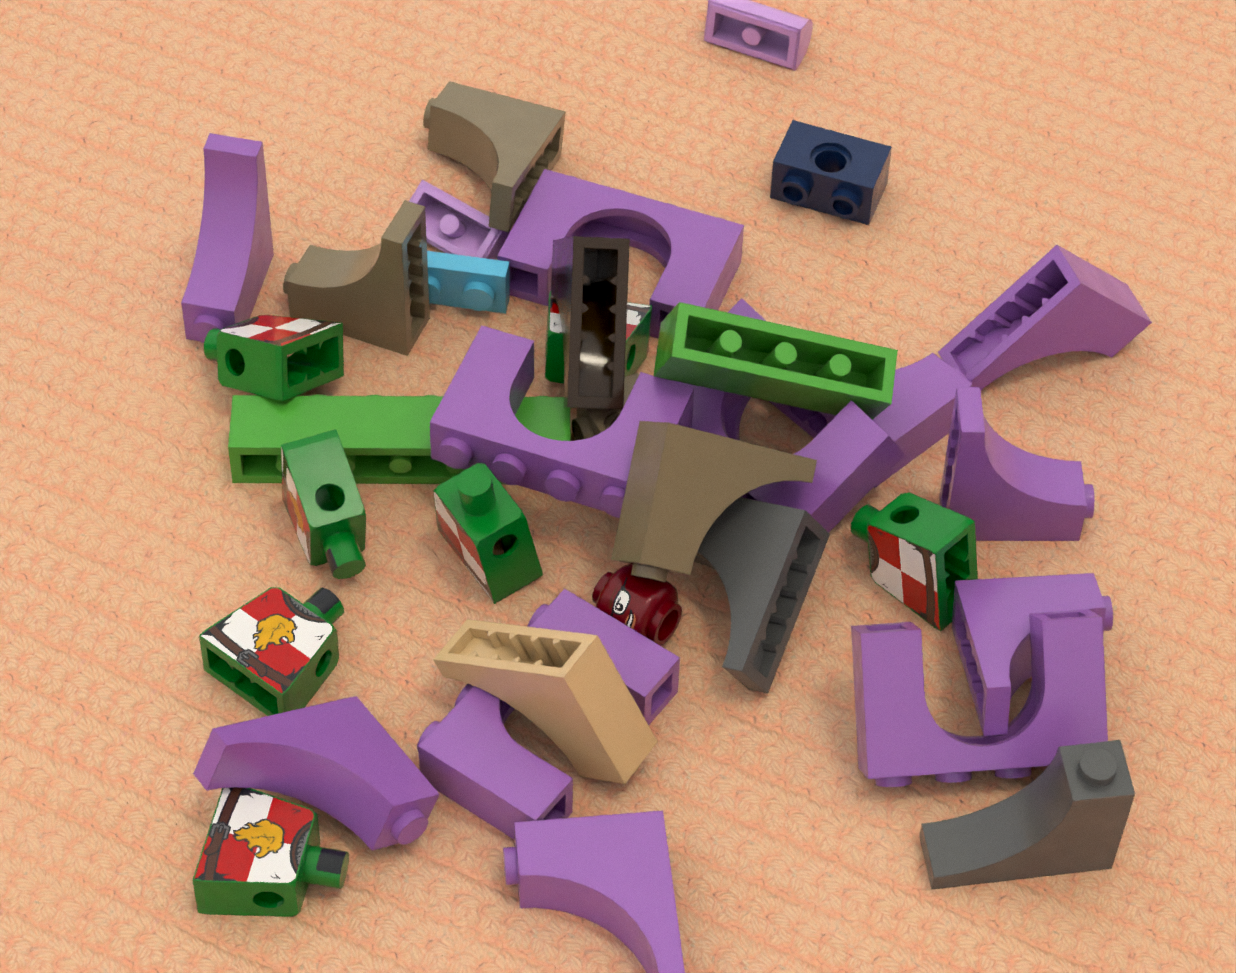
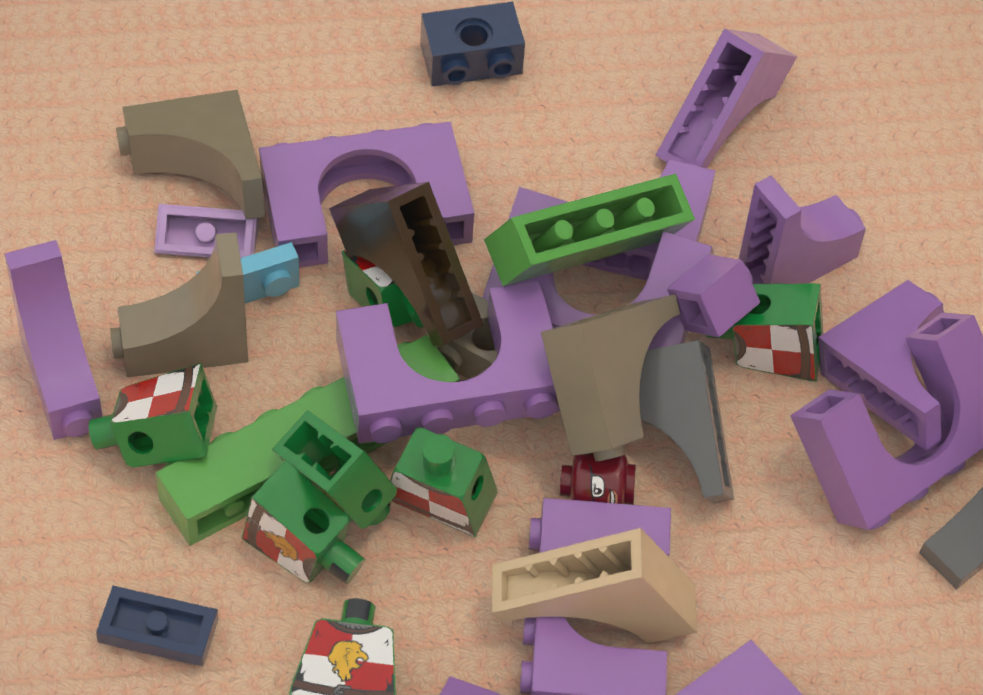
camera: 35 degrees left, 5 degrees up
(145, 529) = (157, 625): none -> dark blue plate
(387, 472) = (357, 483): none -> green torso
(859, 481) = (714, 295): none -> medium lavender brick

